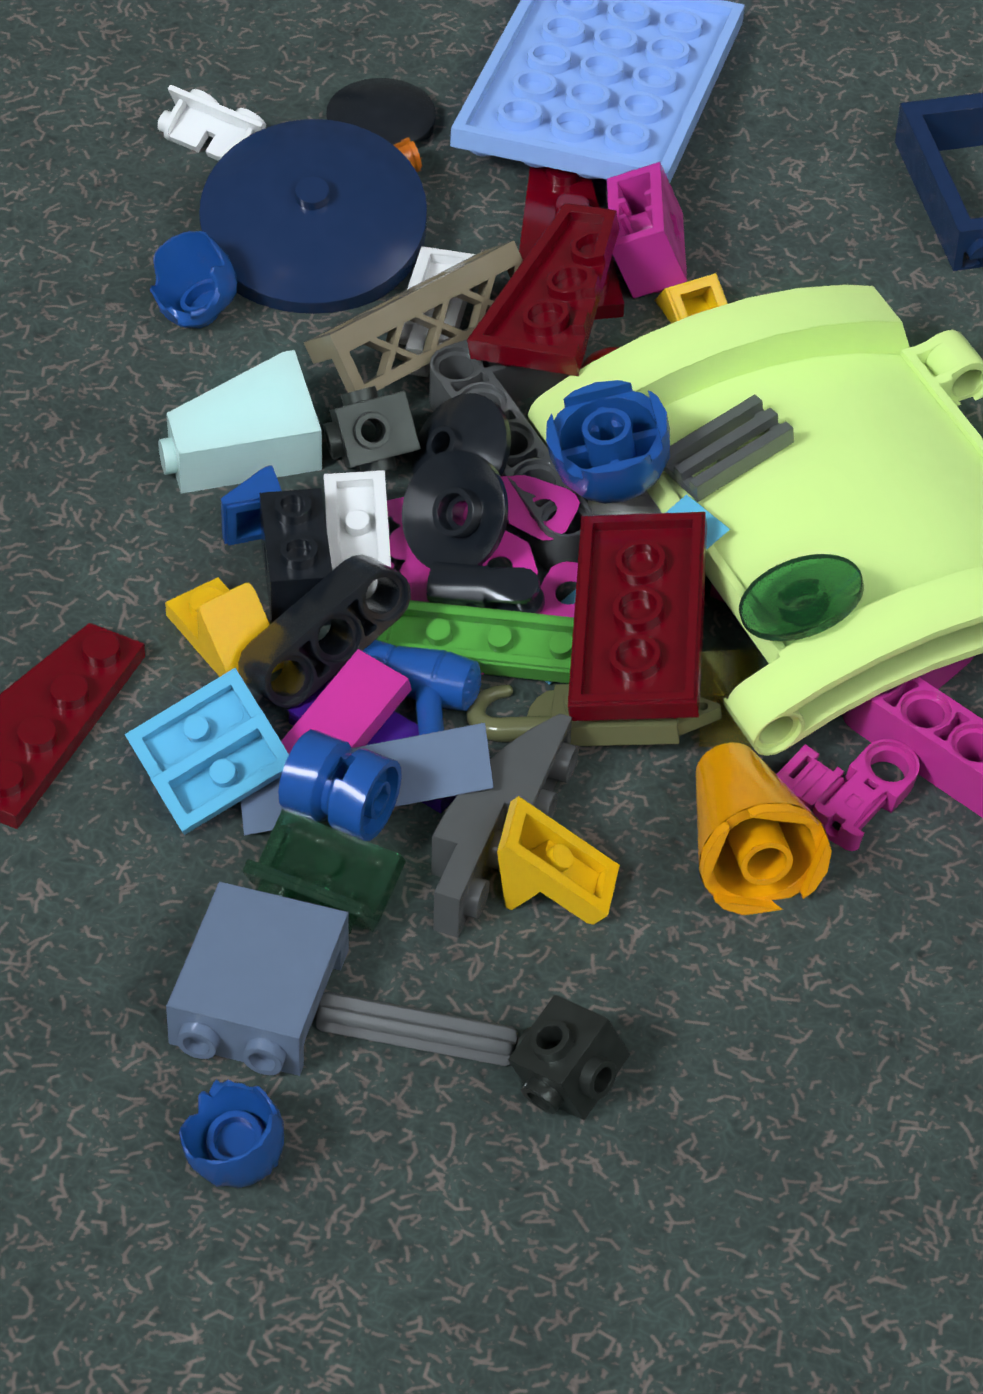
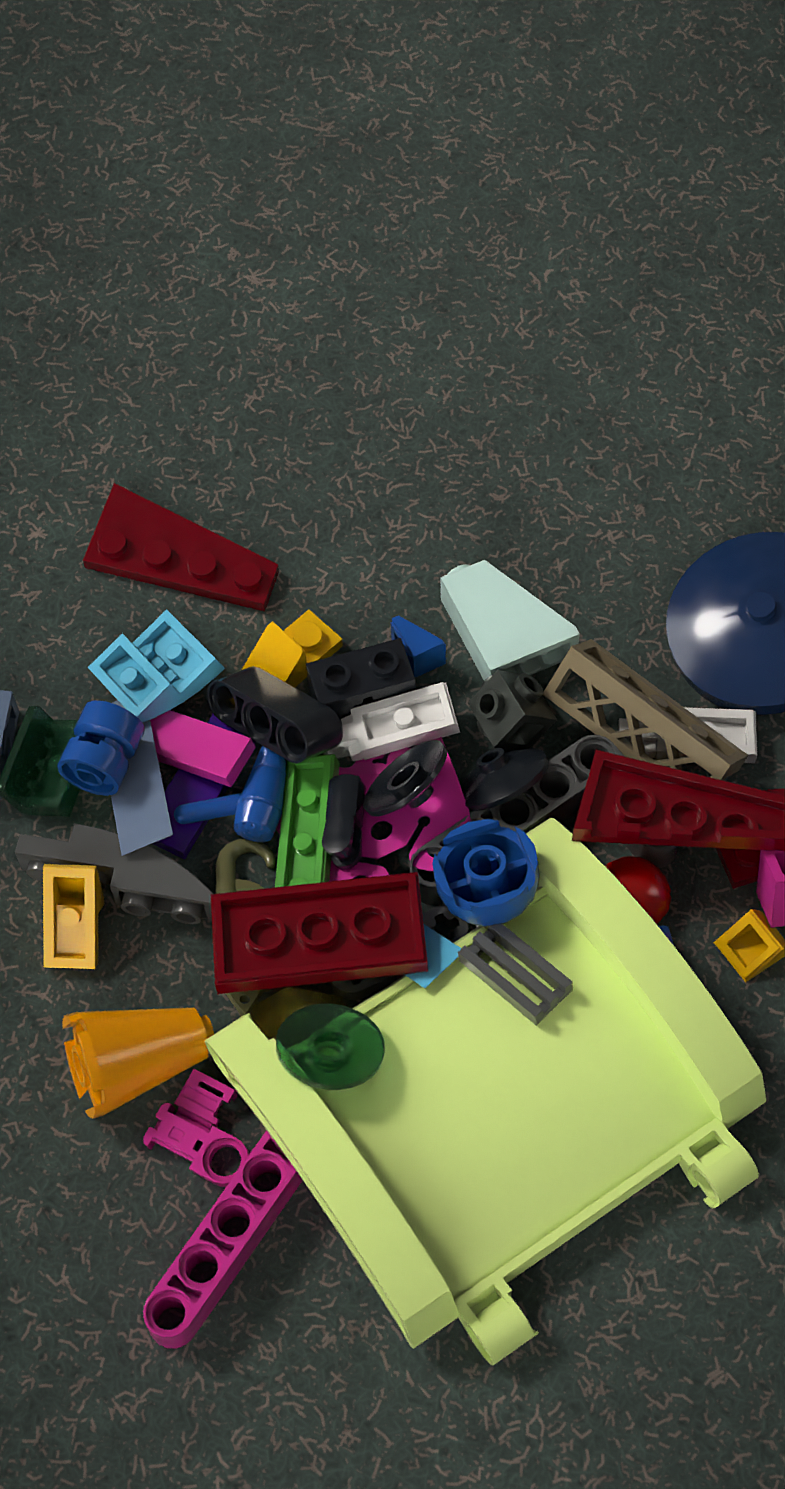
camera: 85 degrees right, 15 degrees up
(193, 278) = (657, 554): blue hair -> none

